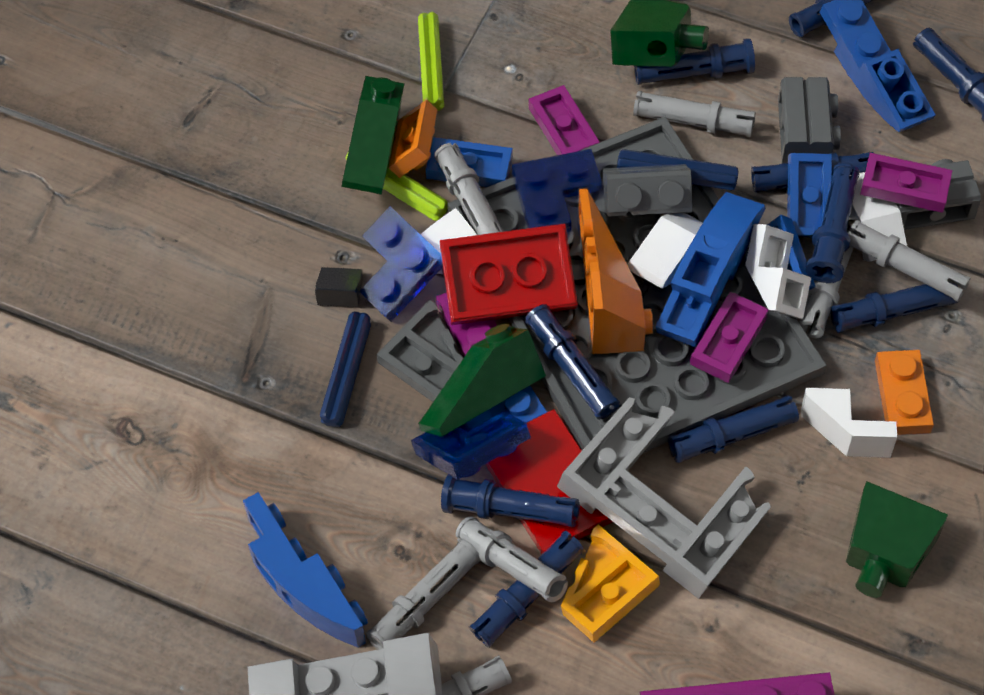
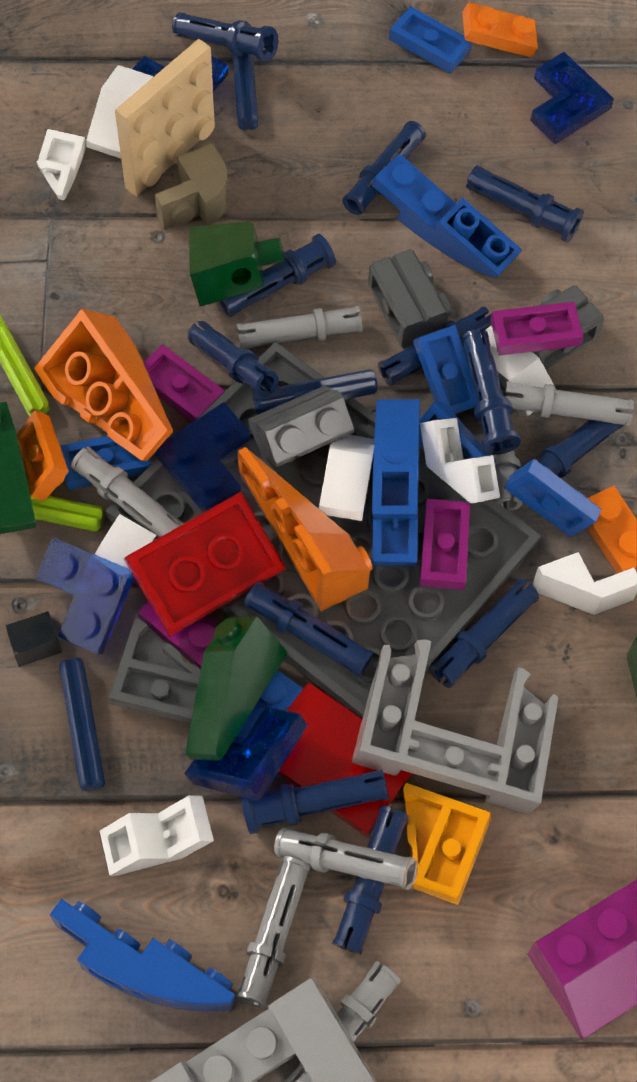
camera: 30 degrees left, 5 degrees up
(357, 483) = (156, 838): none -> white slope
(498, 96) = (105, 380): none -> orange wedge
(620, 120) = (239, 362): none -> dark blue pin
(851, 335) = (552, 498): none -> blue plate

